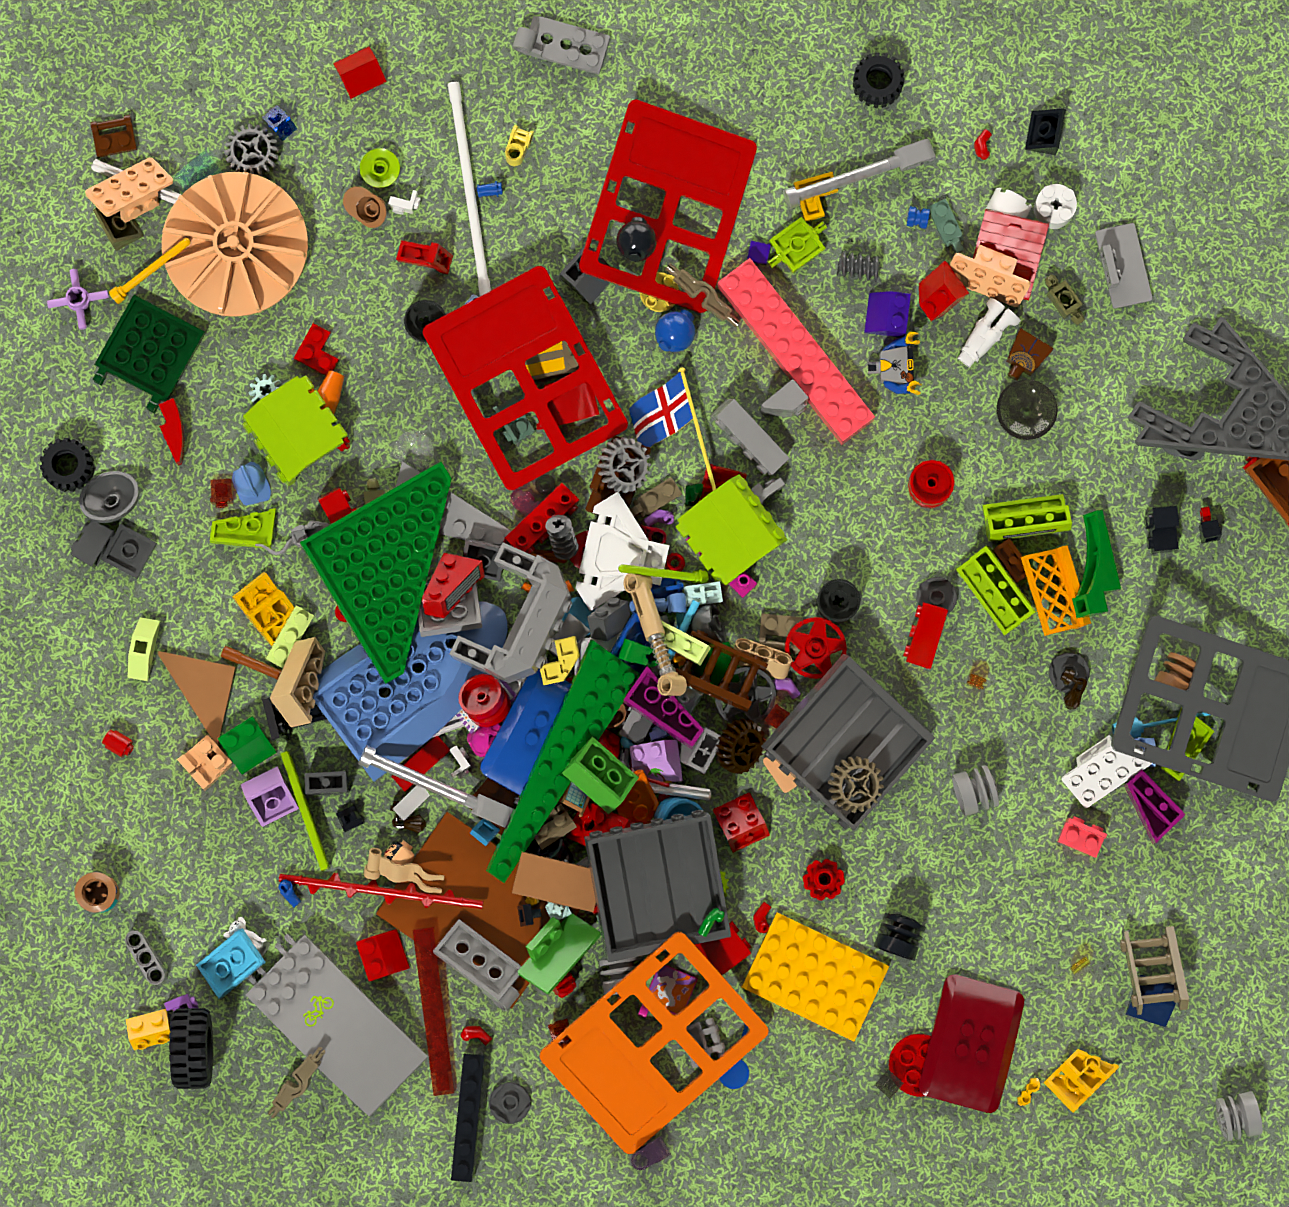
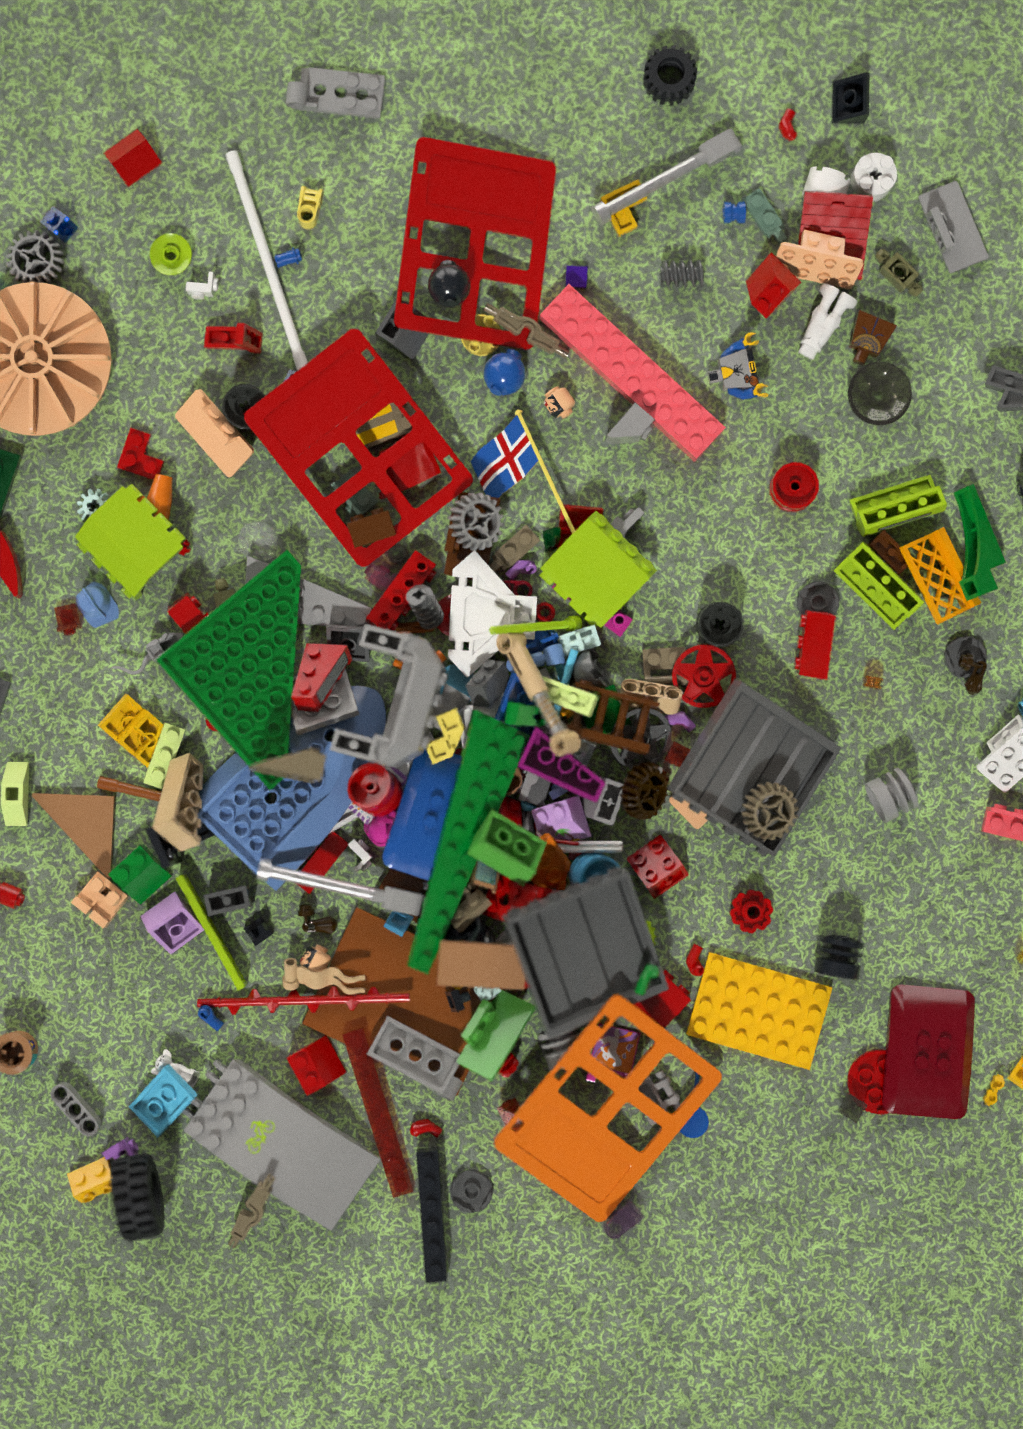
camera: 10 degrees left, 5 degrees up
(245, 530) = (99, 653): lime wing -> none
(365, 206) = (162, 297): medium nougat piece -> none
(391, 341) = (214, 433): none -> light nougat bracket
(411, 801) = (317, 905): white sticker -> none
(416, 664) = (299, 766): none -> dark tan slope
(523, 455) = (371, 528): none -> reddish brown brick
(722, 367) = (559, 402): none -> light nougat head
(749, 436) = (599, 469): light grey wedge -> none
(797, 244) = (614, 262): lime plate -> none
(887, 313) = (720, 318): dark purple slope -> none

